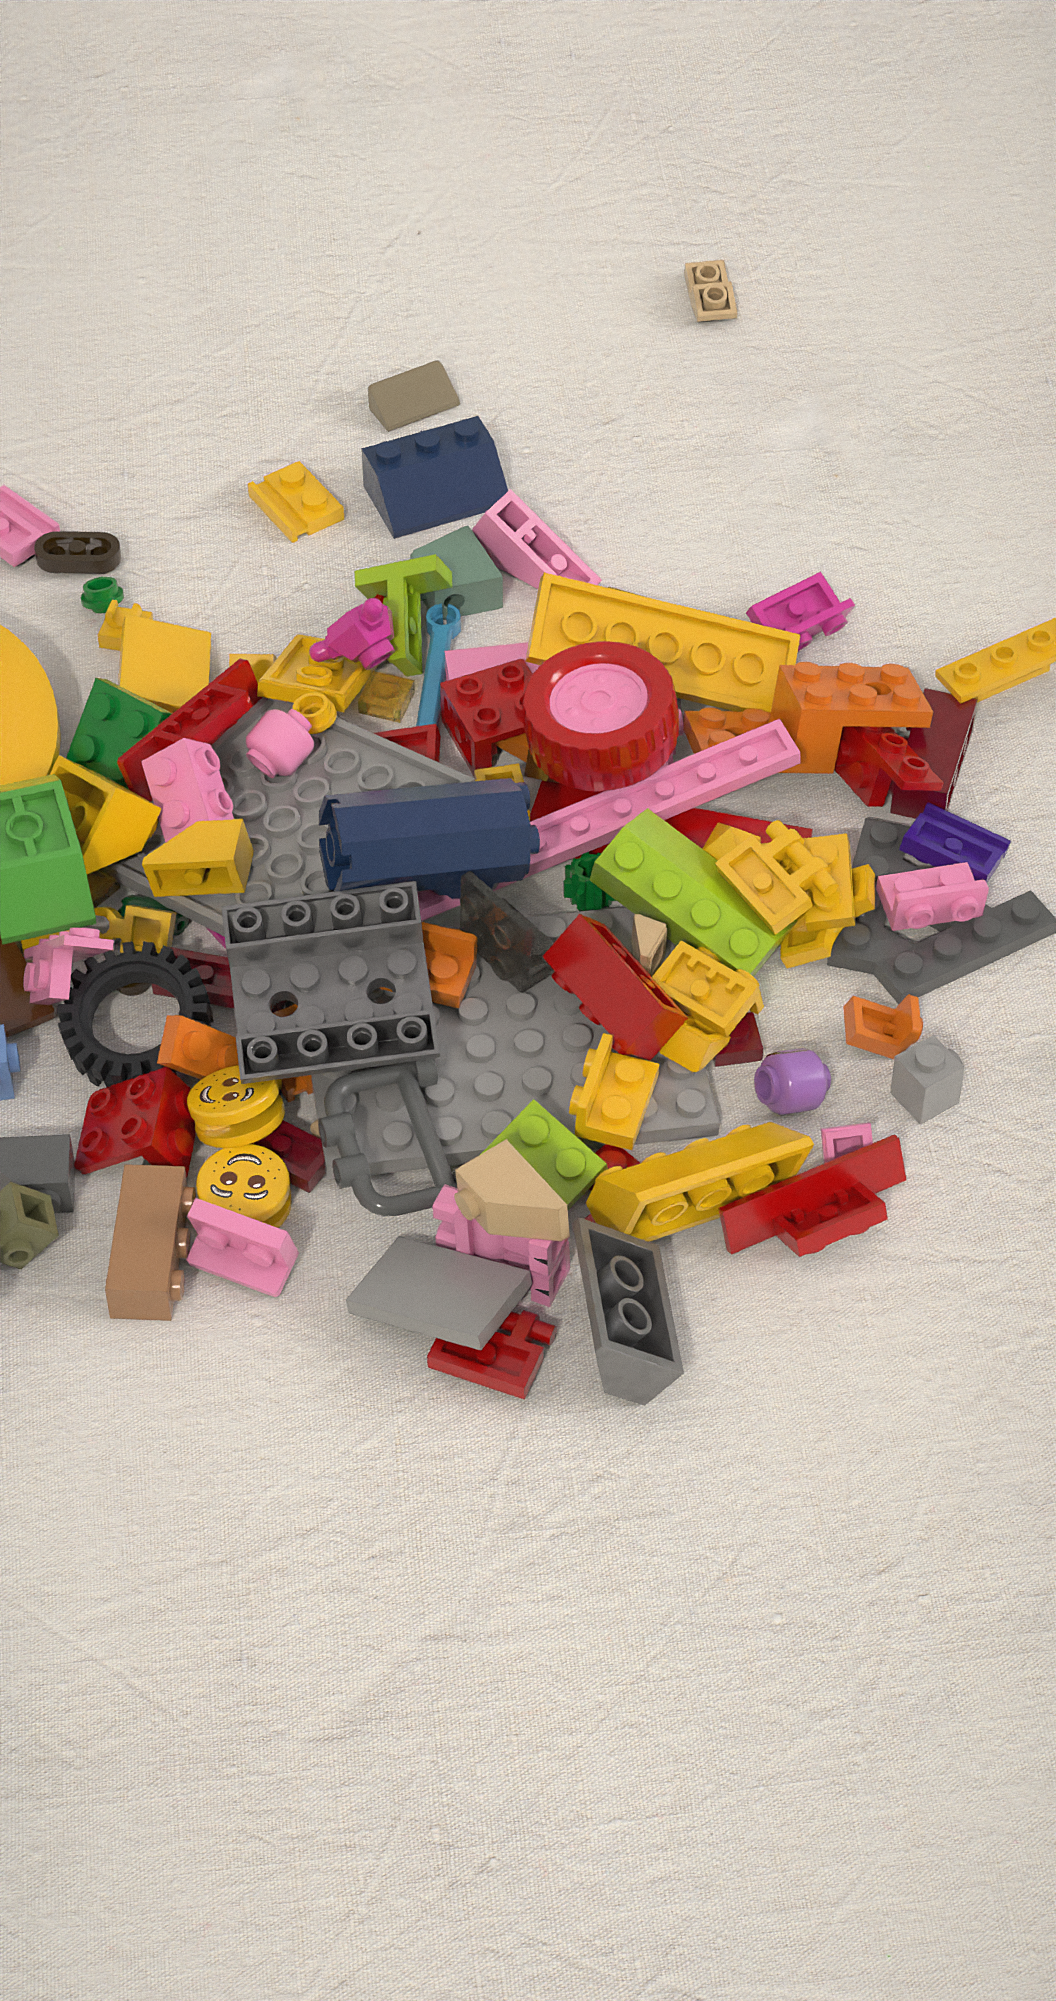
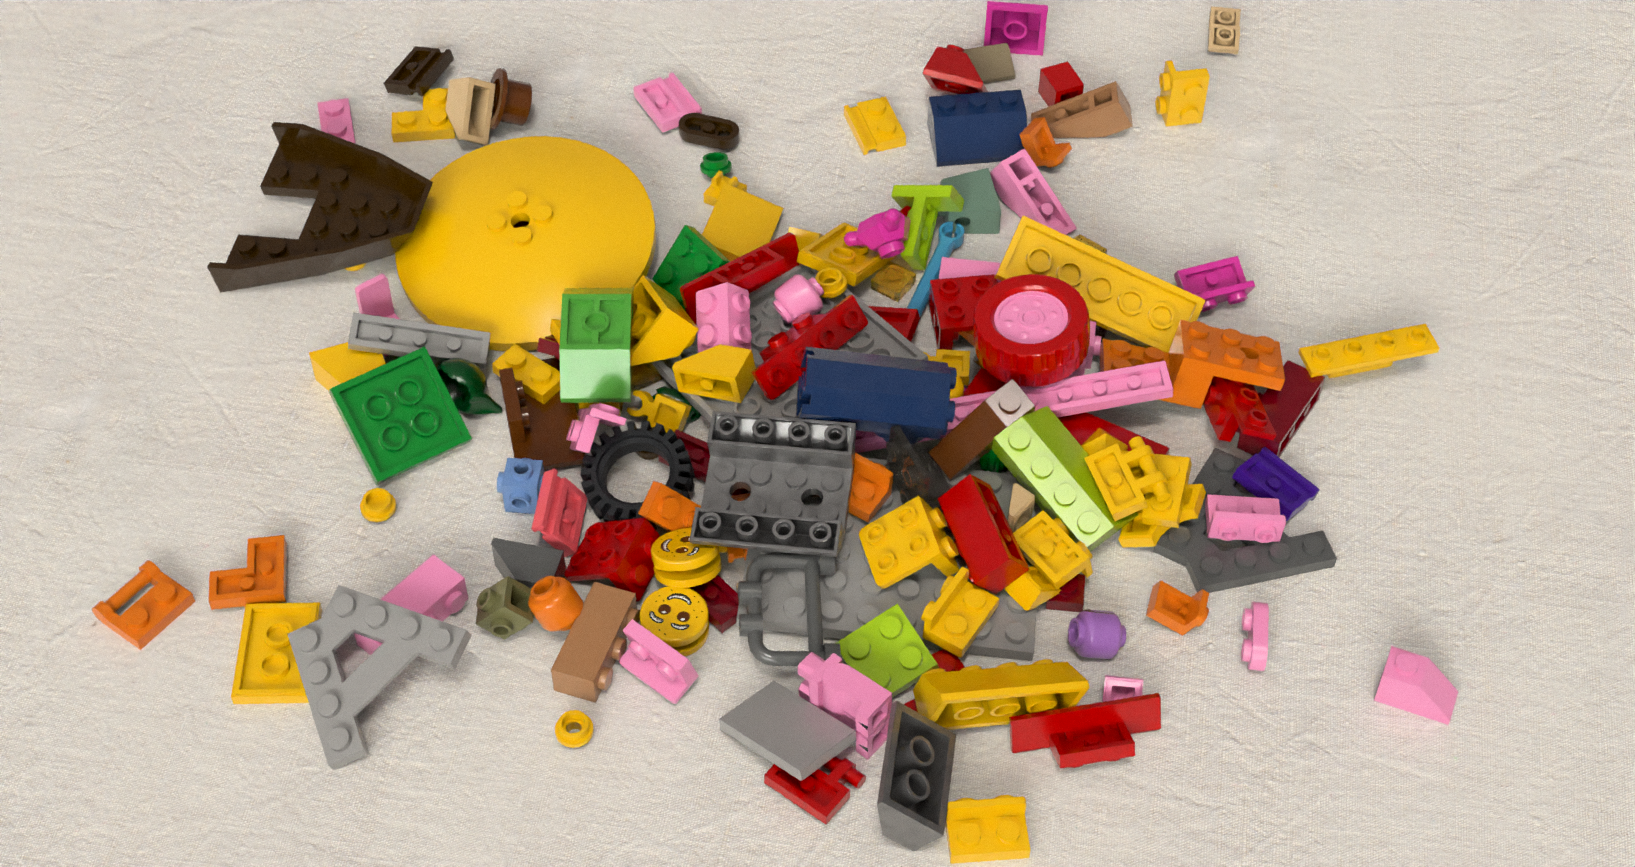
camera: 15 degrees right, 0 degrees up
(45, 1086) = (559, 512): none -> coral plate
(82, 1204) = (555, 603): none -> orange head
(155, 1348) = (574, 720): none -> yellow plate
(291, 810) = (785, 349): none -> red bracket
(383, 410) = (953, 71): none -> red slope
(444, 333) = (1017, 25): none -> dark pink slope
(510, 1196) = (850, 673): tan slope -> none
(520, 1021) = (907, 542): none -> yellow bracket
(521, 476) = (1041, 145): none -> orange bracket
(525, 404) = (1059, 83): none -> red brick
(569, 434) = (1089, 114): none -> medium nougat slope
(571, 856) = (975, 434): none -> reddish brown slope
(686, 382) = (1182, 95): none -> yellow bracket
(732, 1354) = (987, 829): none -> yellow bracket
(927, 1079) = (1198, 656): light grey brick -> none
(993, 1045) = (1256, 646): none -> bright pink plate

